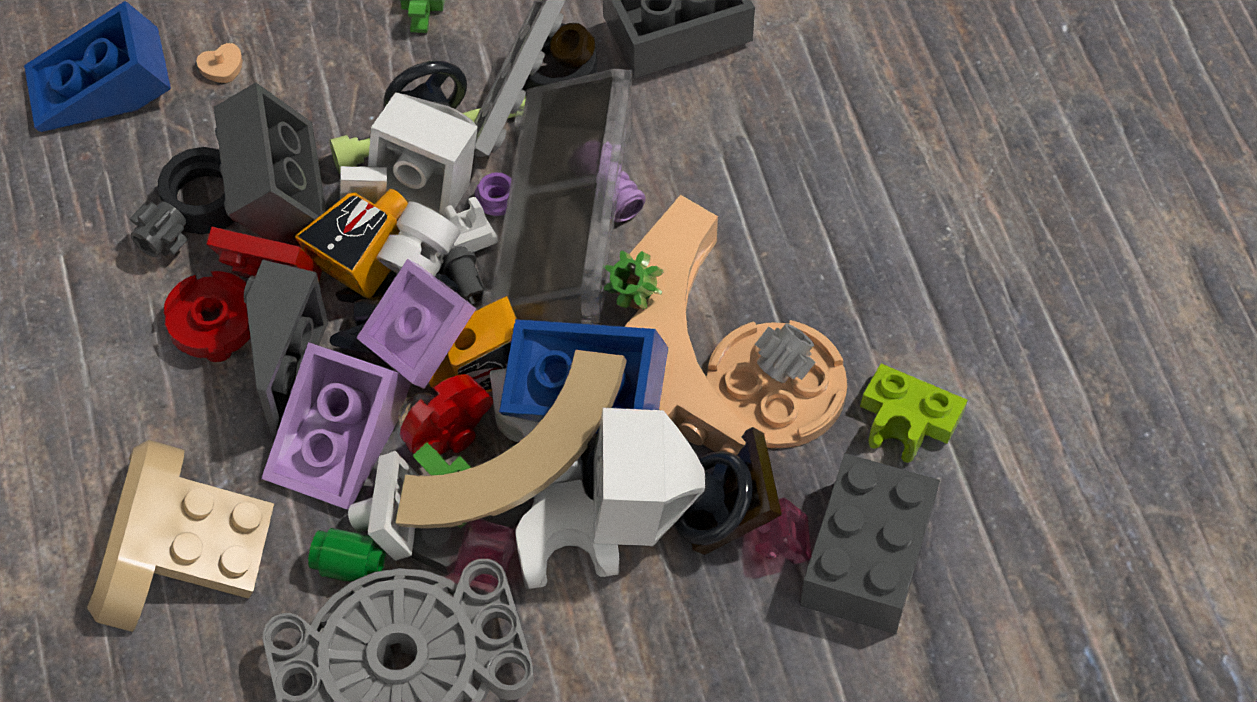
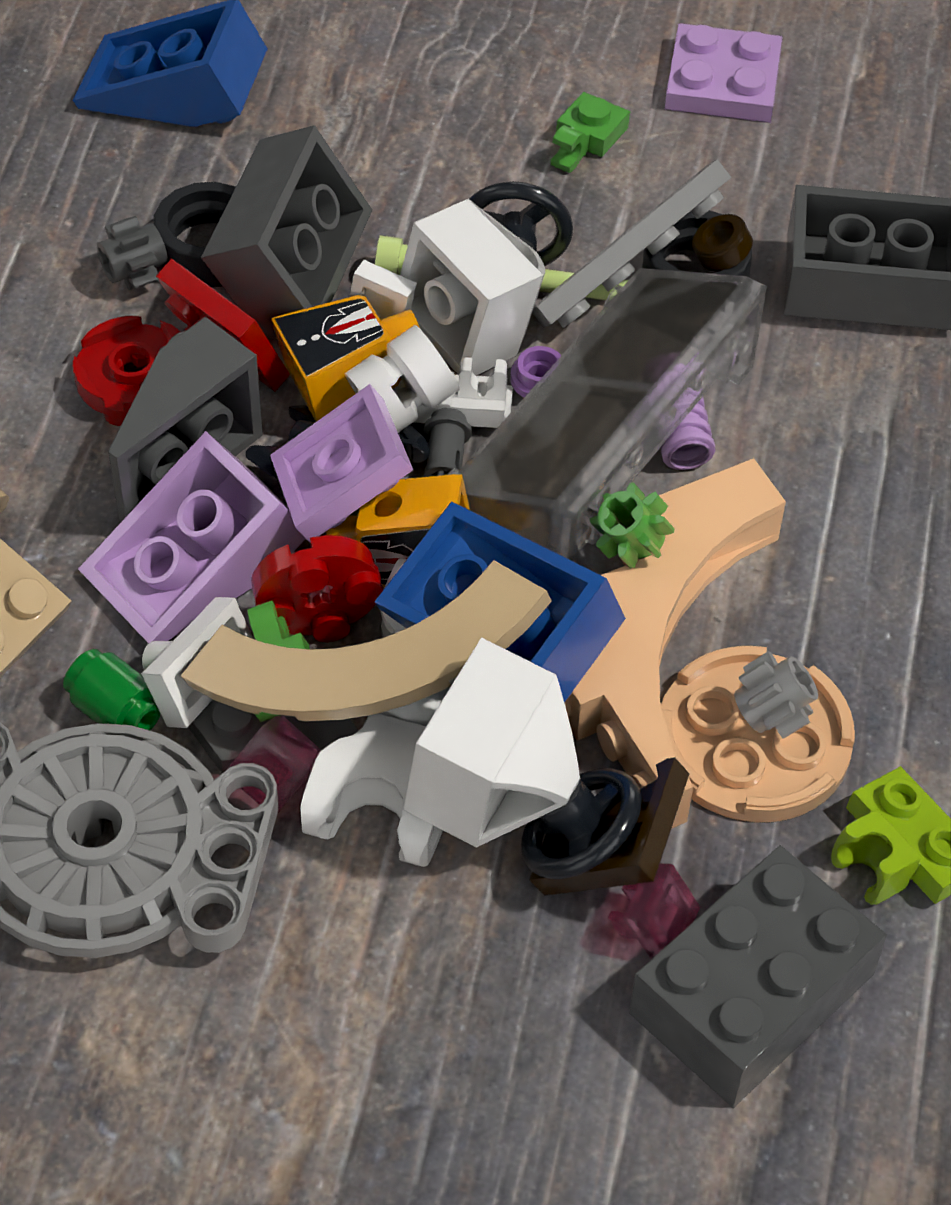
camera: 25 degrees right, 5 degrees down
(222, 64) = (324, 112): light nougat piece -> none

